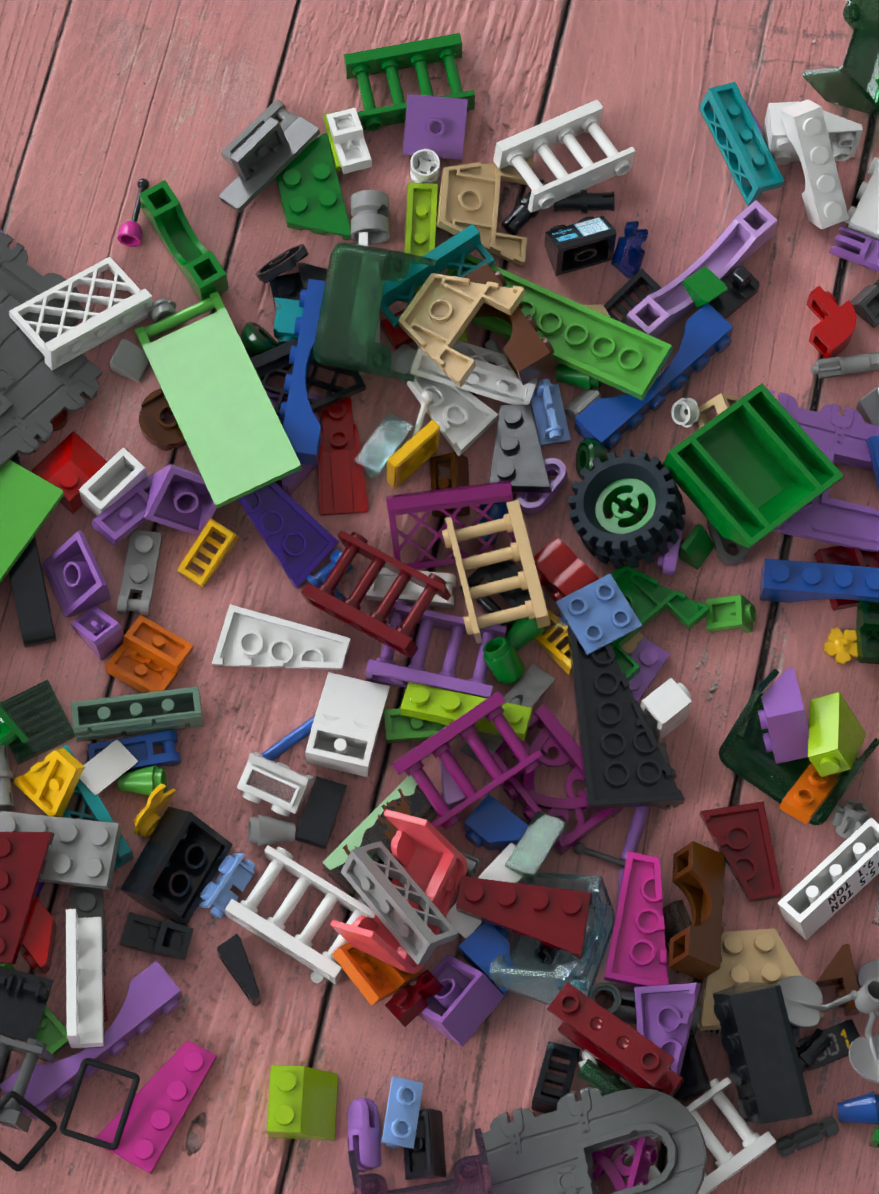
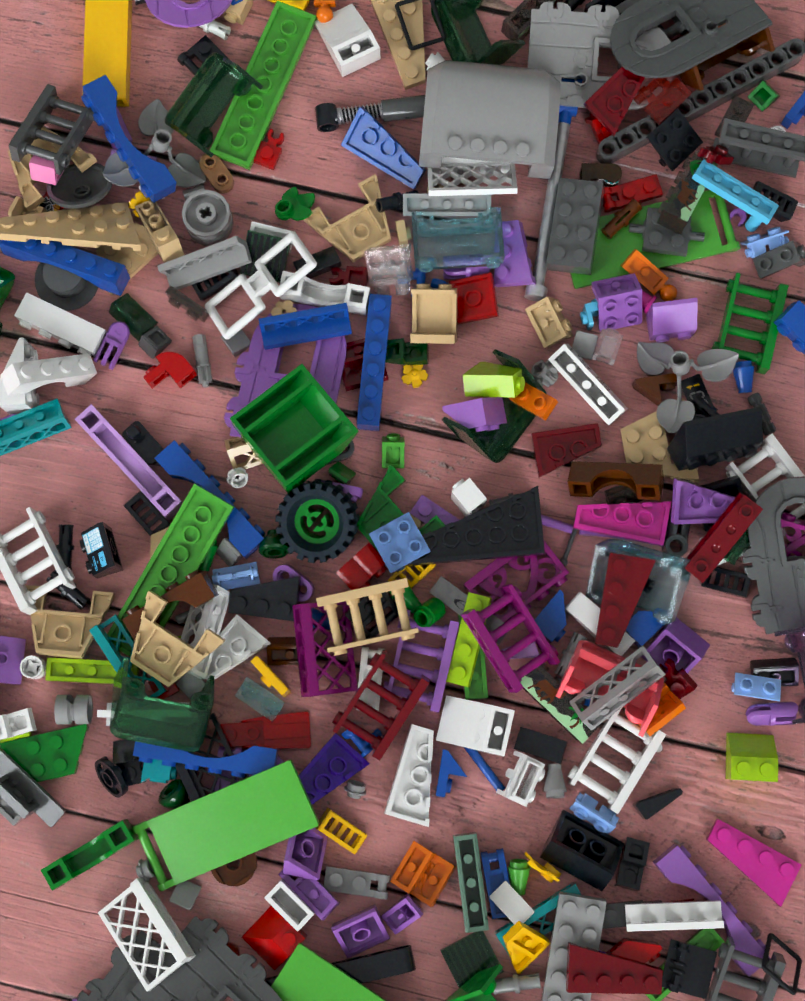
camera: 85 degrees left, 10 degrees up
(110, 1146) = (753, 921): black piece -> none
(131, 232) = (77, 896): dark pink hinge -> none
(263, 569) = (355, 789): none -> light grey plate
(293, 686) = (447, 766): none -> blue slope
(426, 396) = (225, 666): white hinge -> none
(536, 845) = (571, 590): slope -> none
(628, 252) = (110, 514): clear blue plate -> none
(703, 286) = (141, 459): green slope -> none

